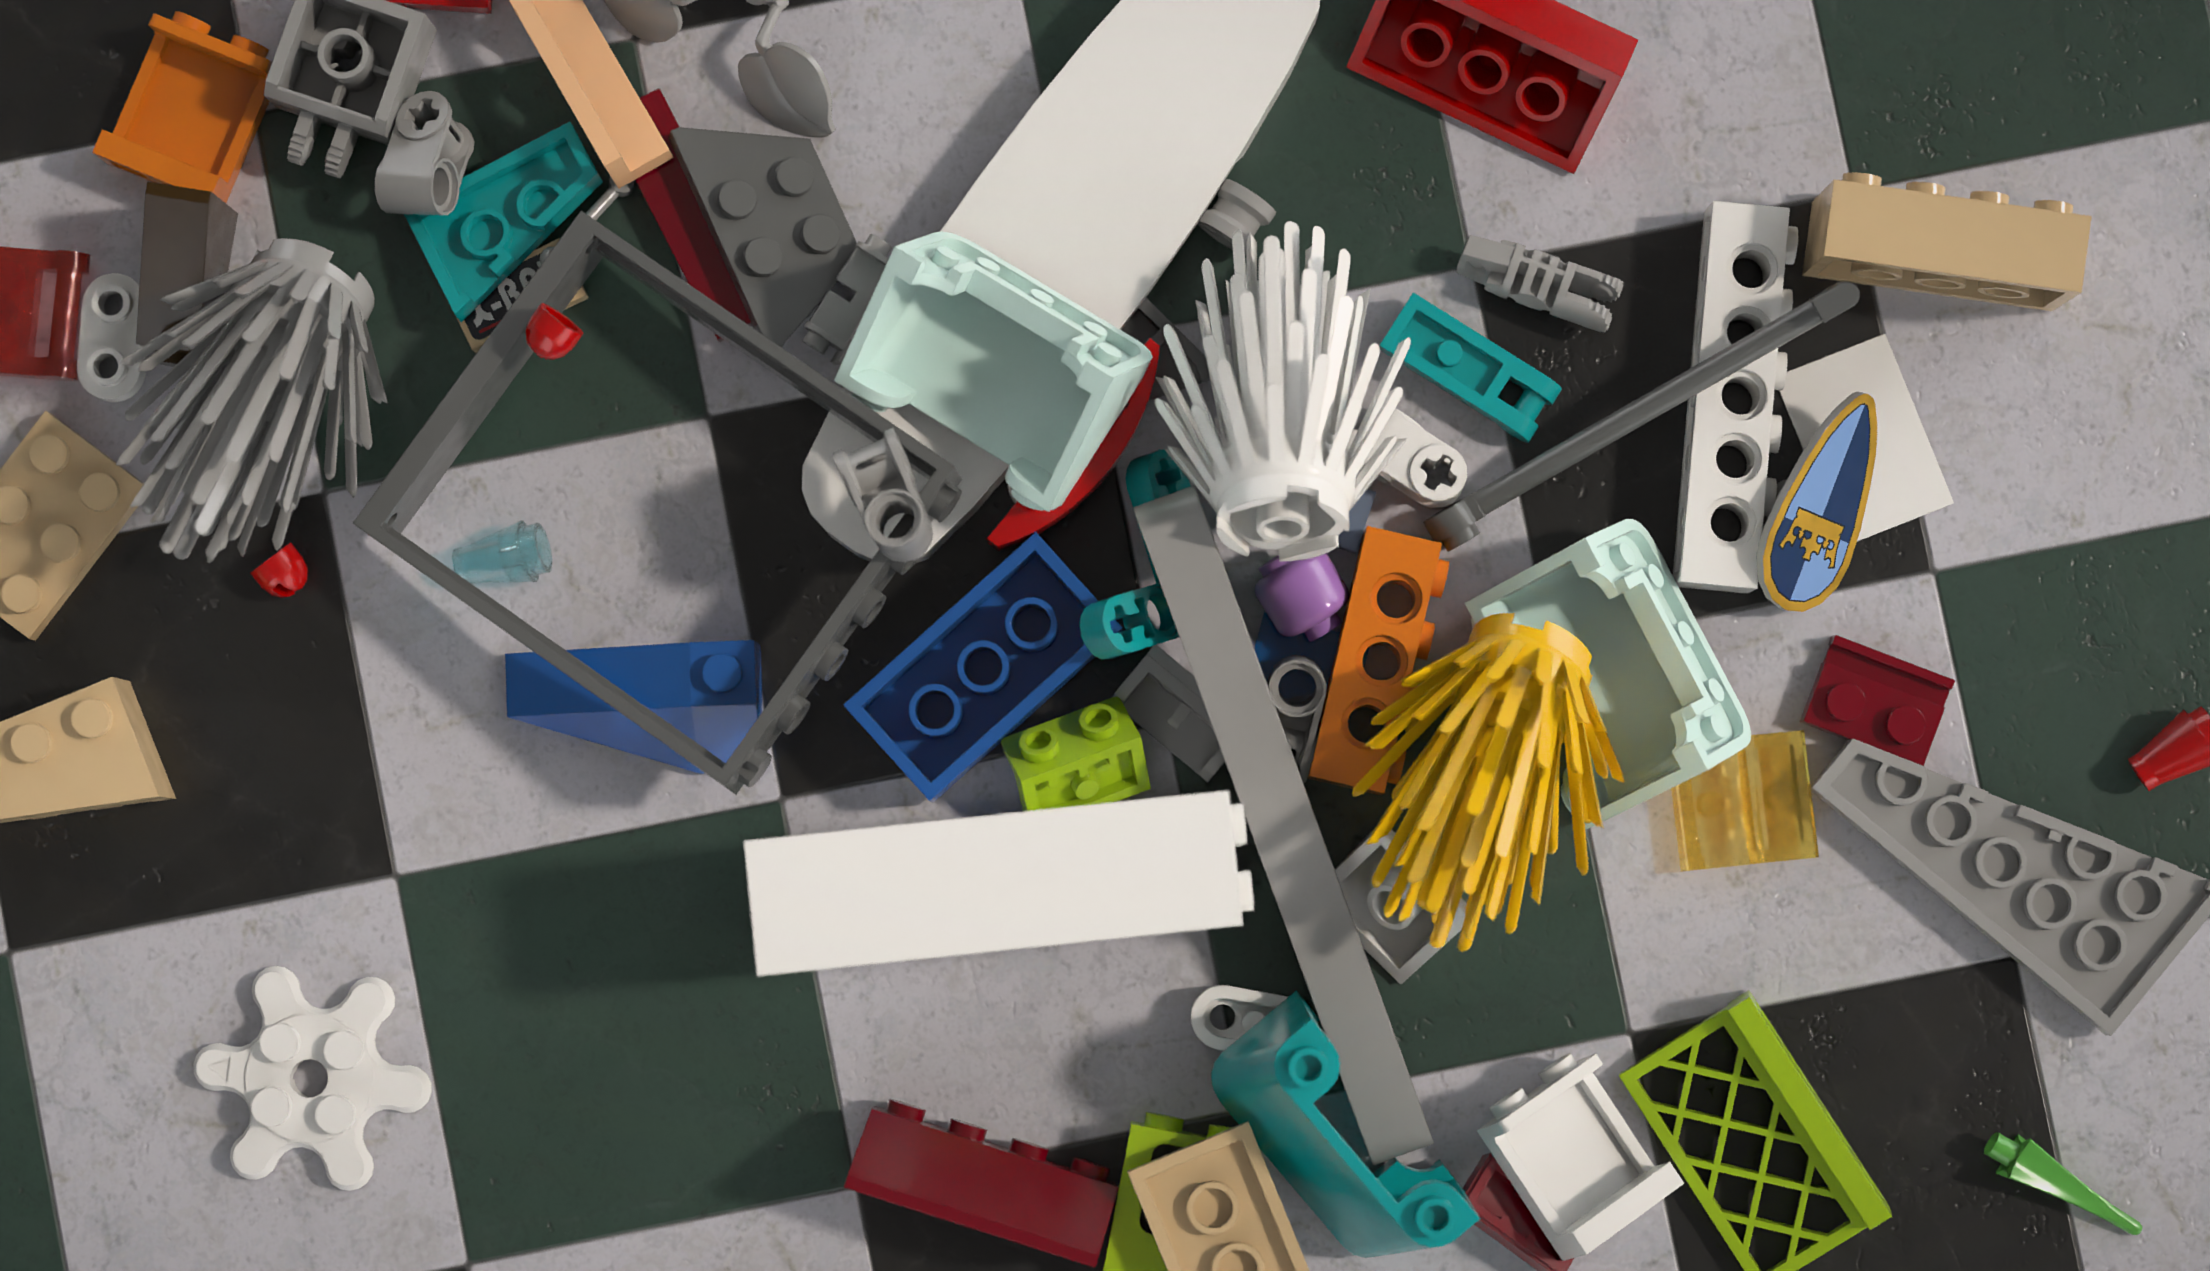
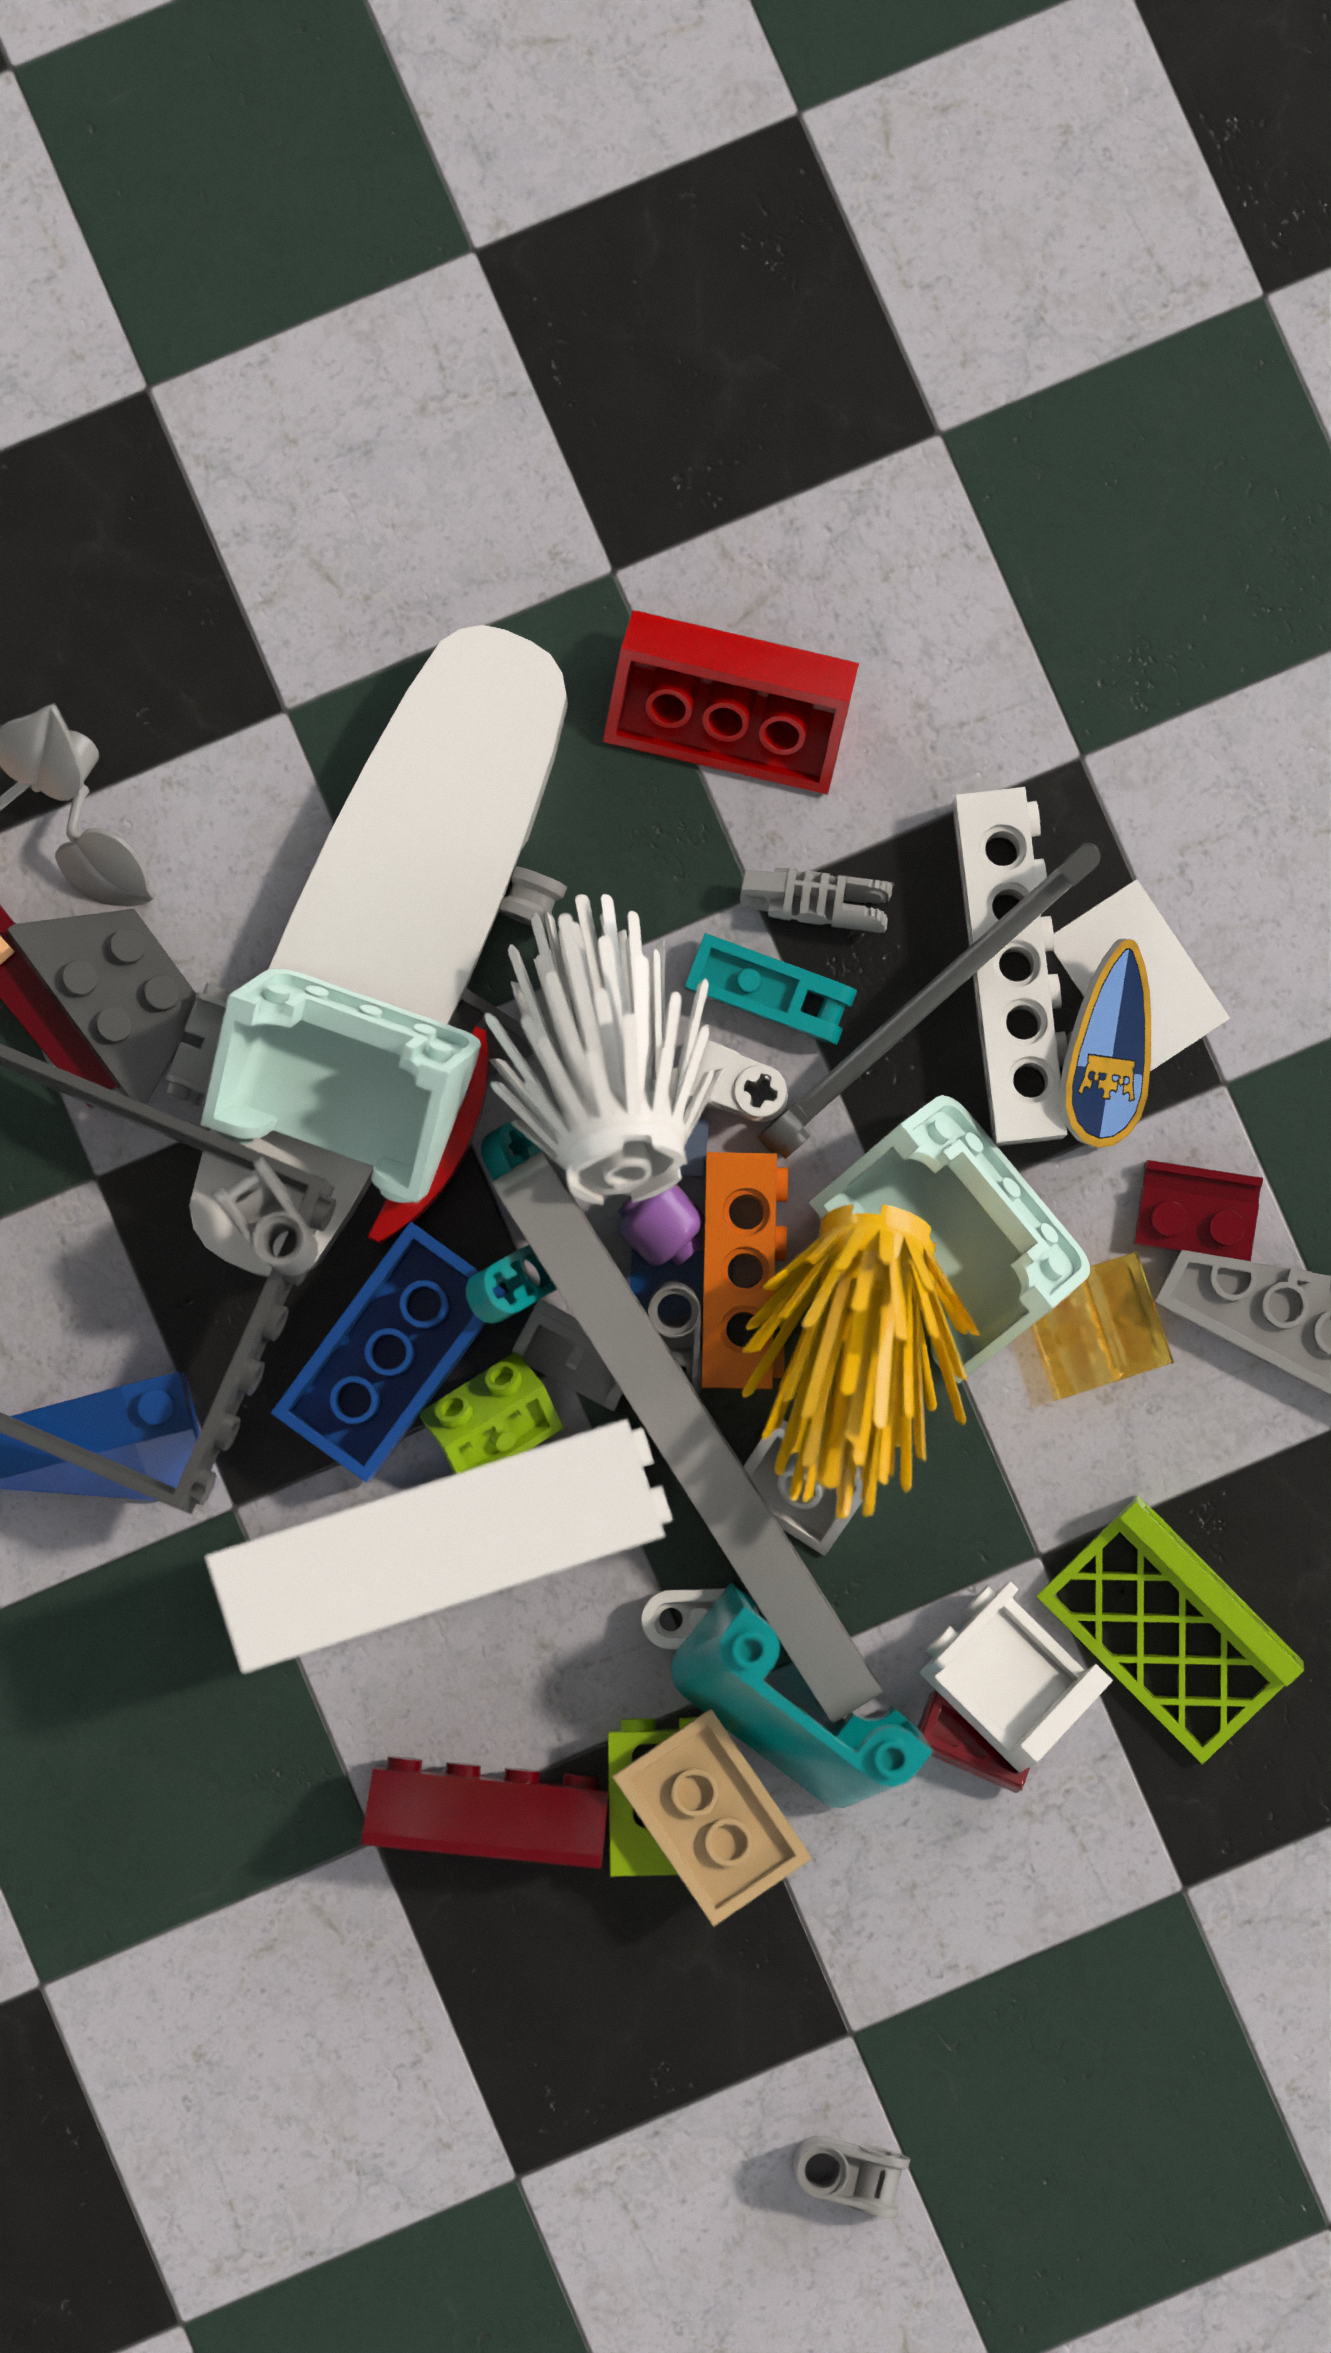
camera: 10 degrees left, 0 degrees up
(1947, 243) = (1172, 788): tan brick -> none

